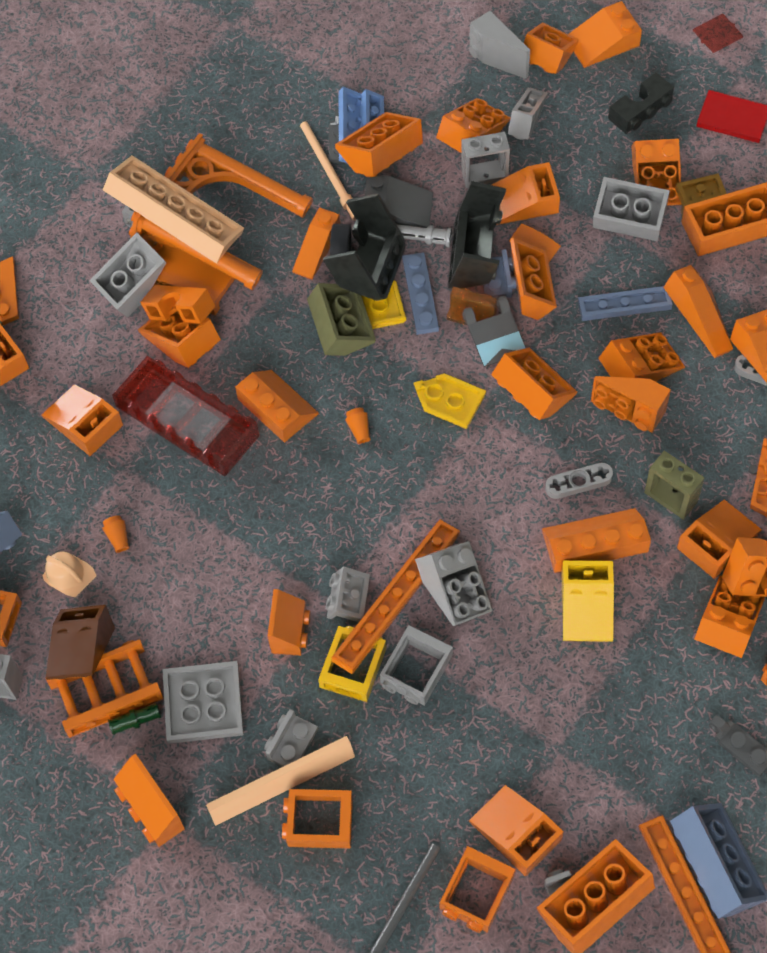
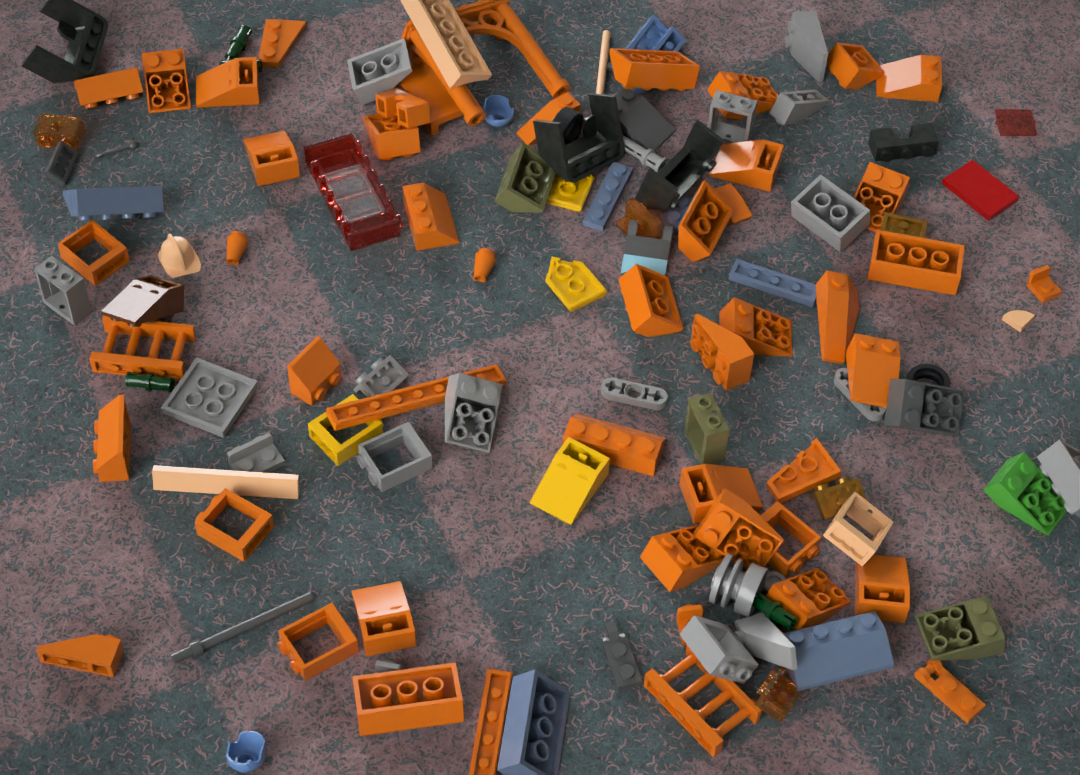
camera: 25 degrees right, 10 degrees down
(261, 254) = (498, 107): none -> medium blue hair

